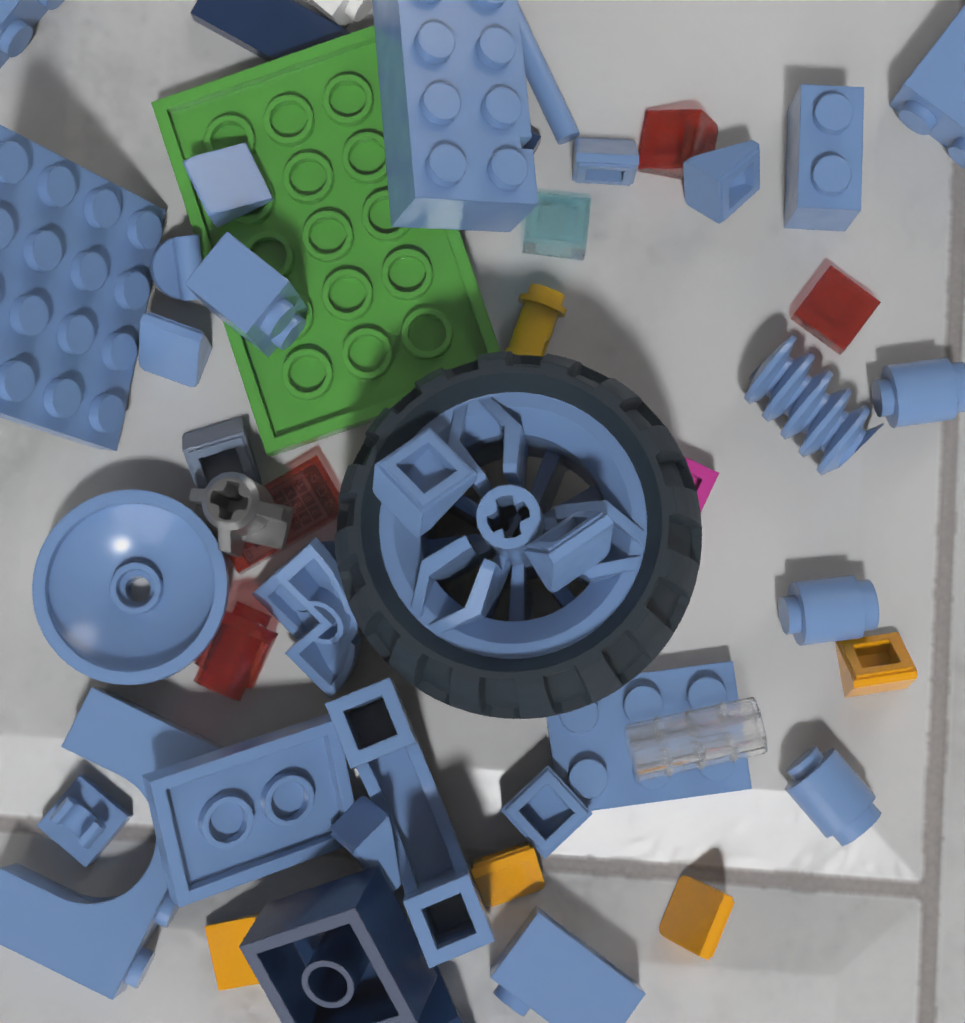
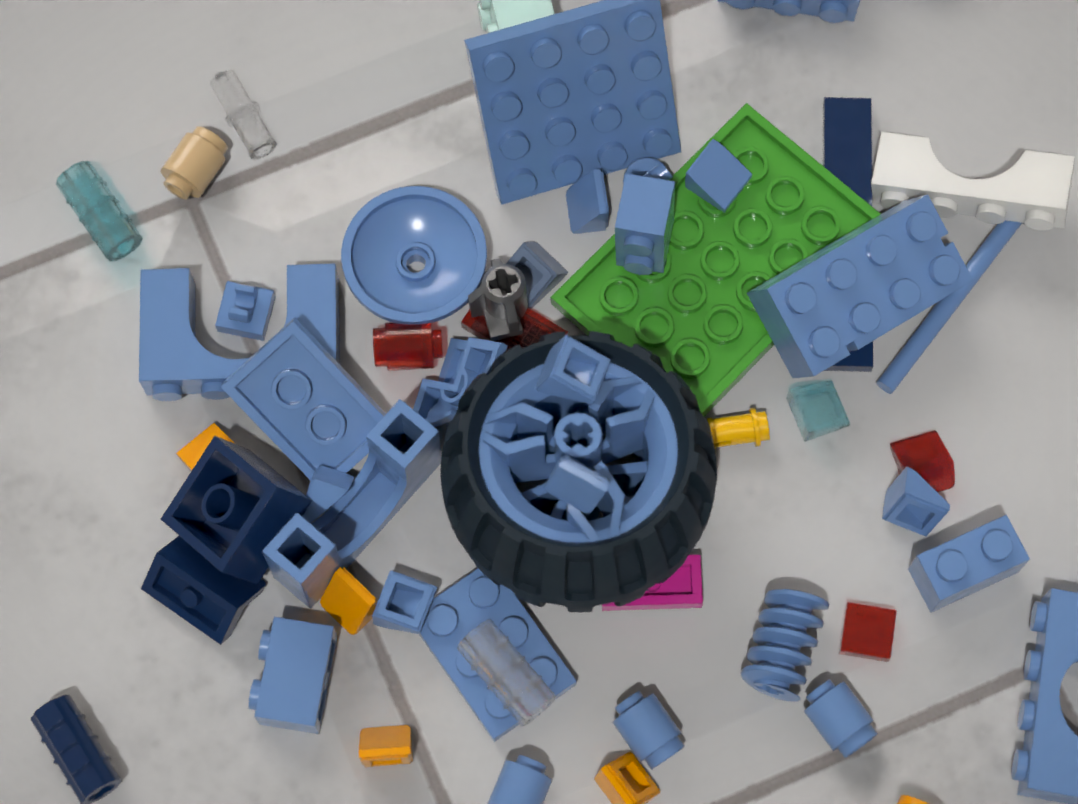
camera: 65 degrees right, 10 degrees down
(605, 161) = (881, 418): medium blue slope -> none

